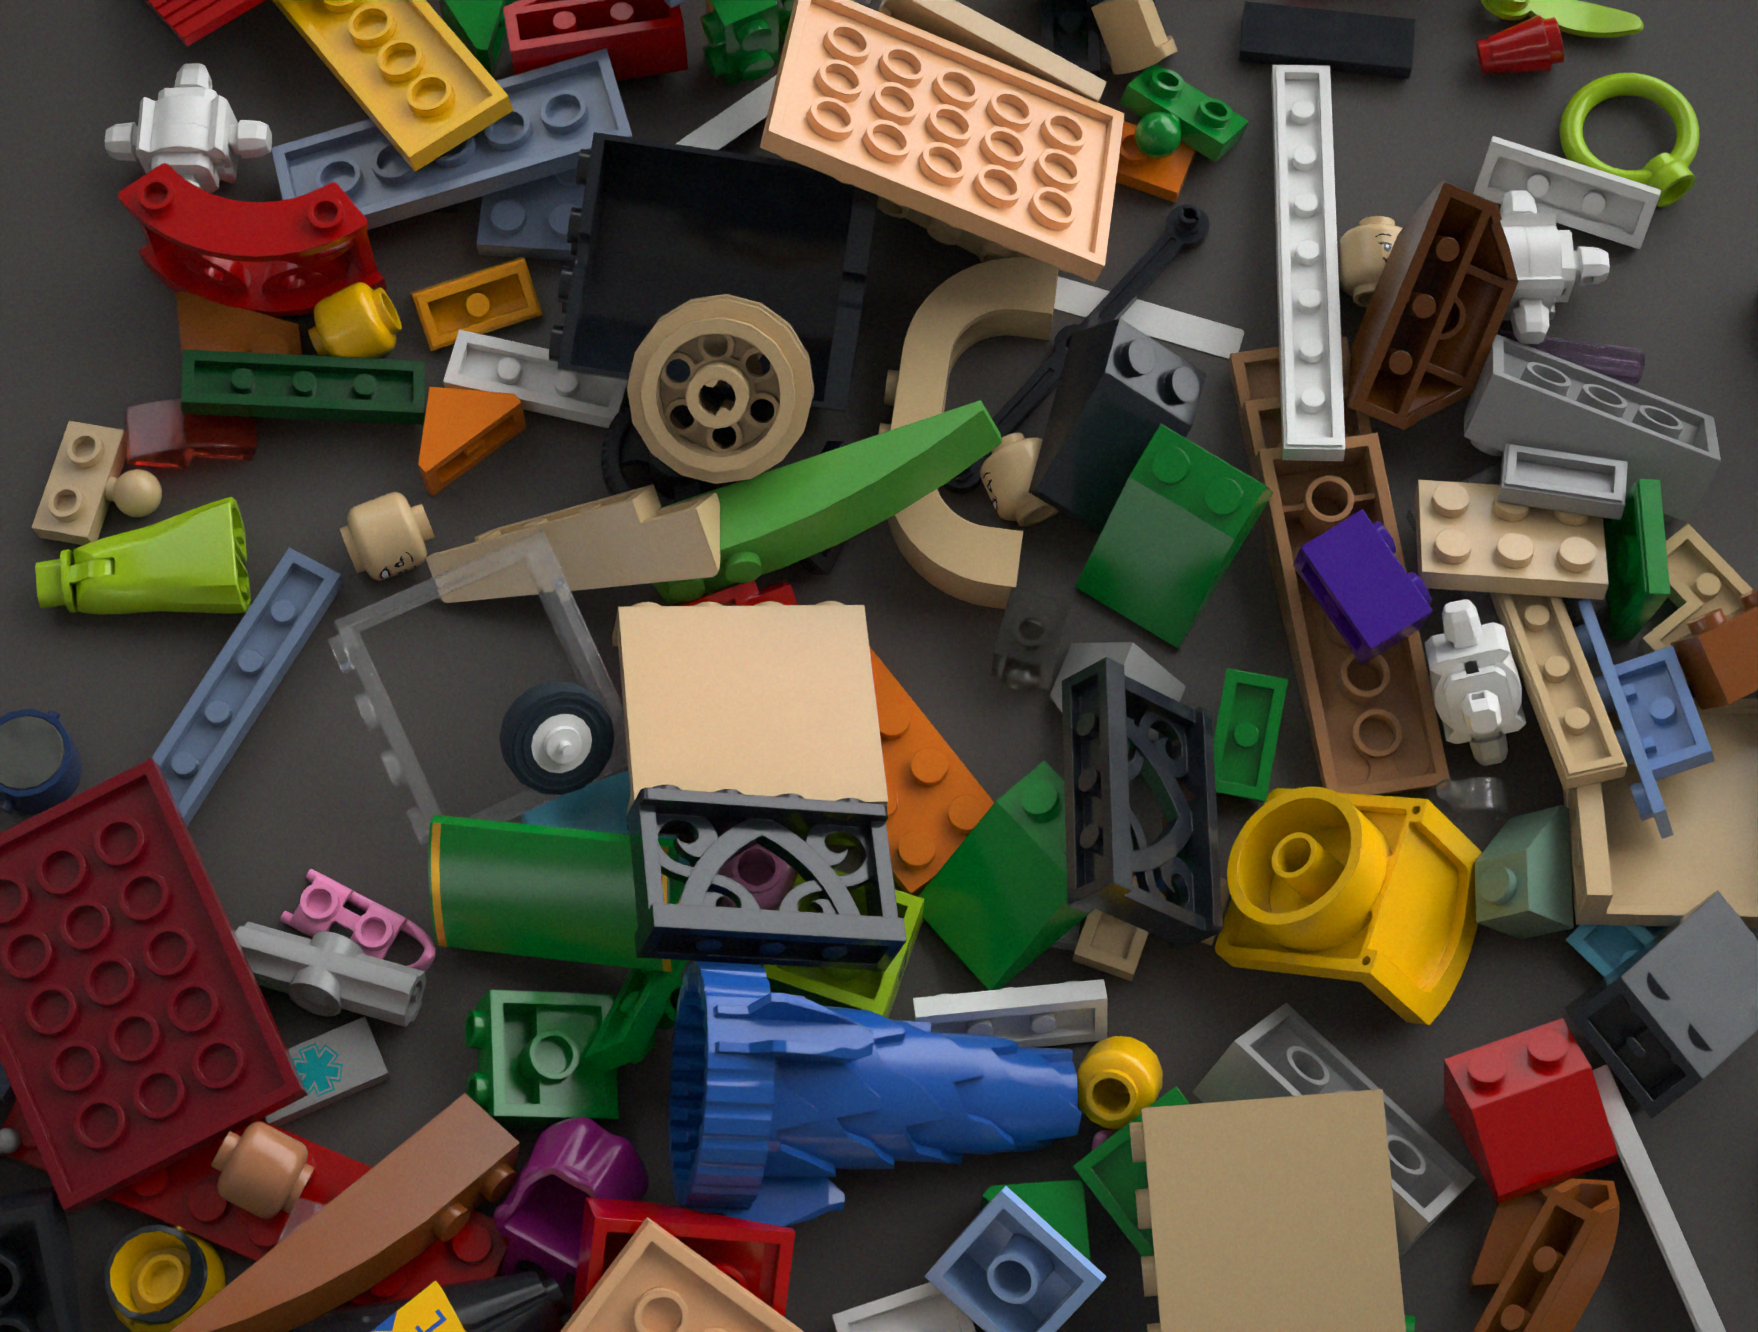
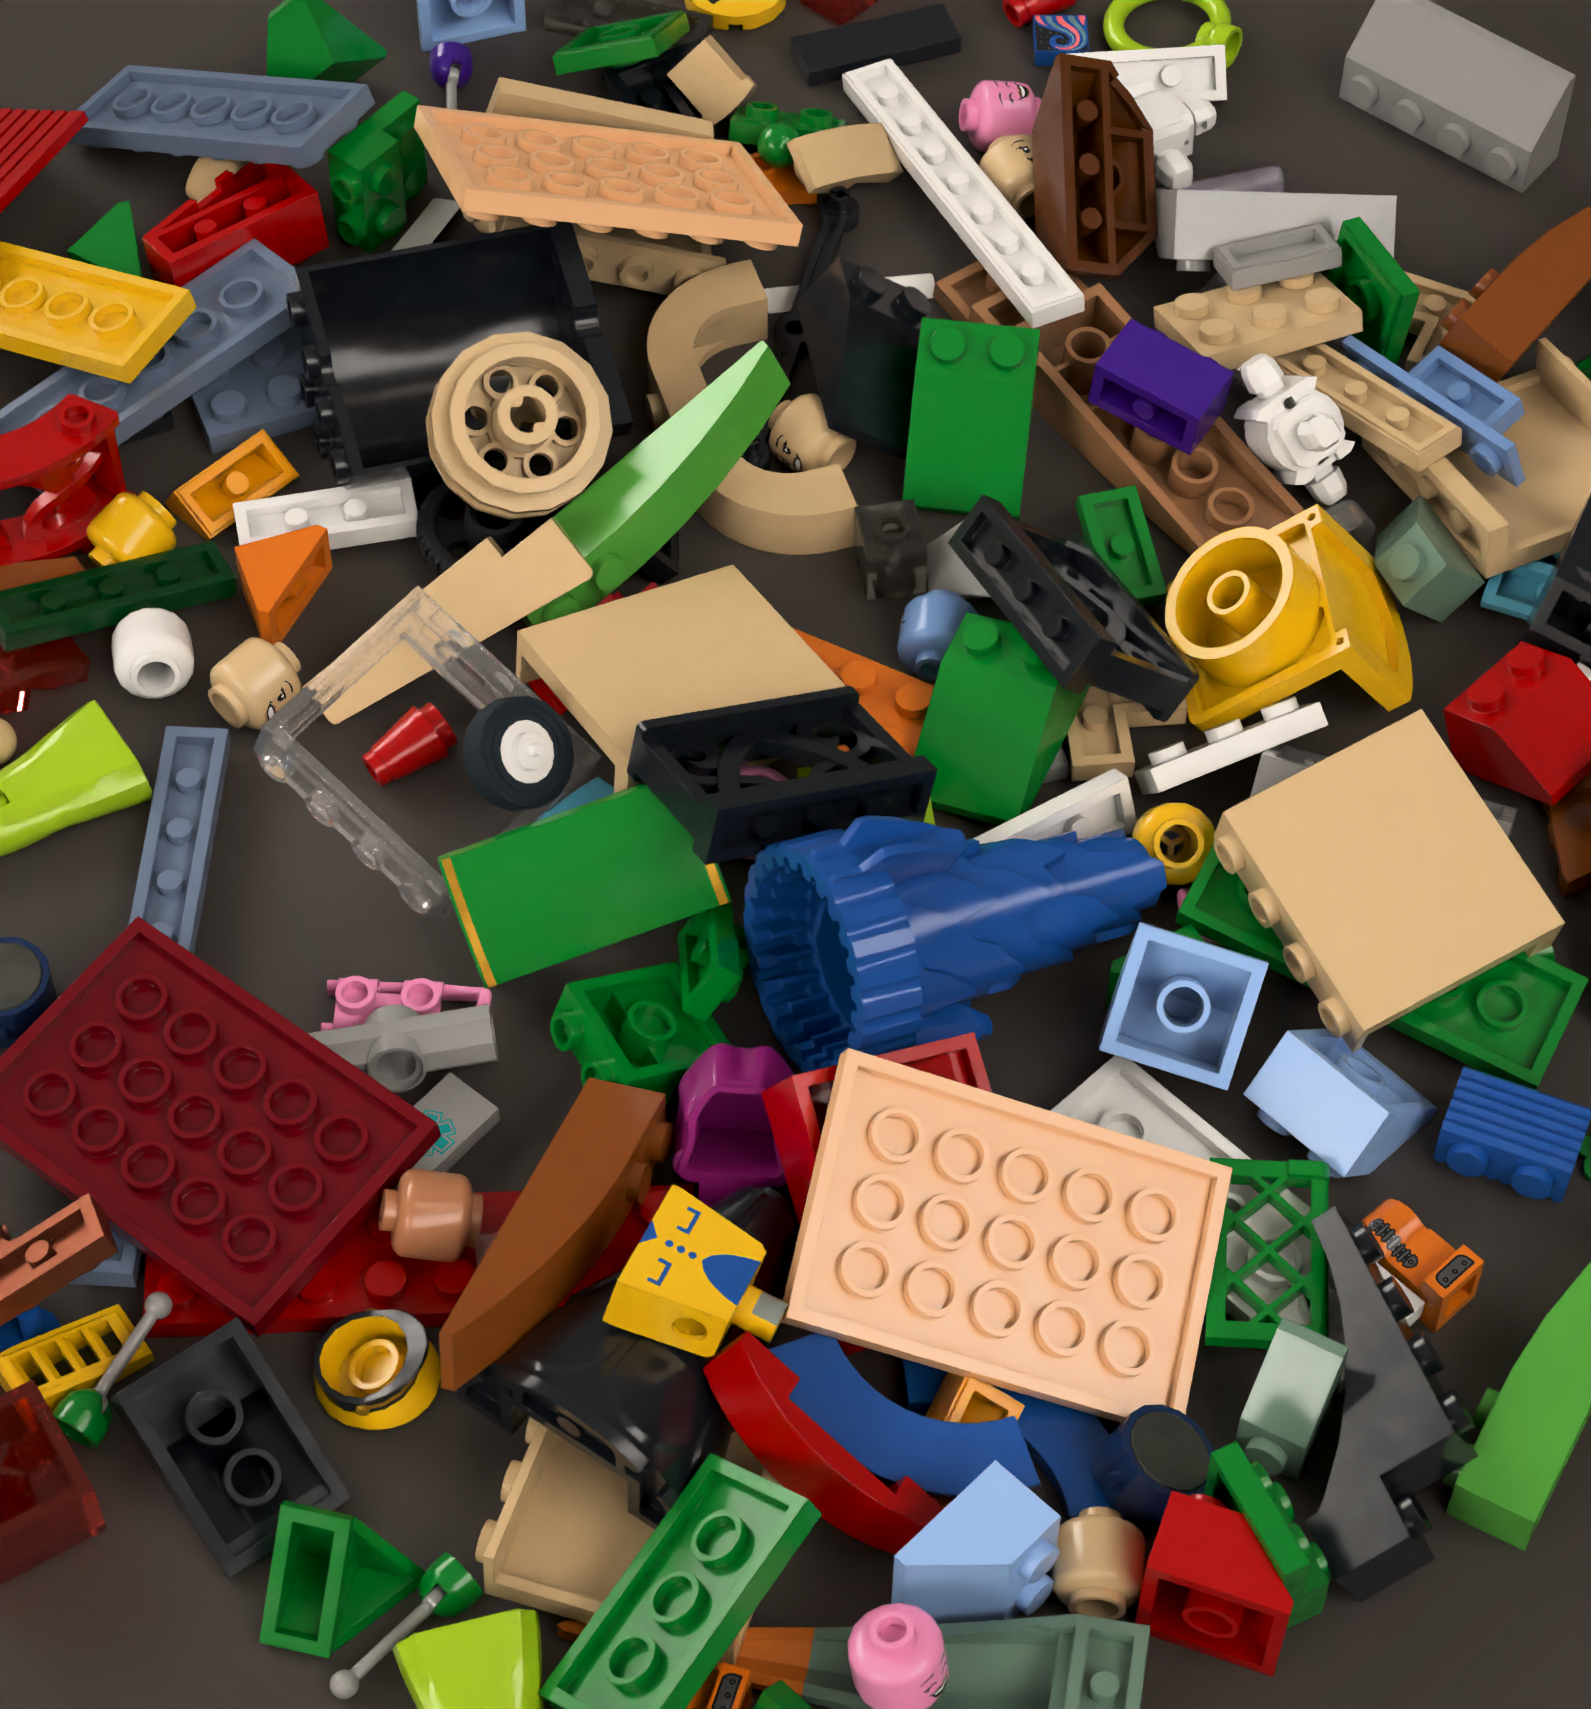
camera: 25 degrees left, 15 degrees down
(314, 463) = (152, 653): none -> white head
(494, 659) = (409, 745): none -> red cone
(1022, 744) = (928, 630): none -> medium blue head
(1215, 174) = (844, 157): none -> tan slope
(1229, 999) = (1229, 744): none -> white plate
(1396, 181) = (997, 111): none -> bright pink head
(1512, 108) = (1058, 35): none -> tile

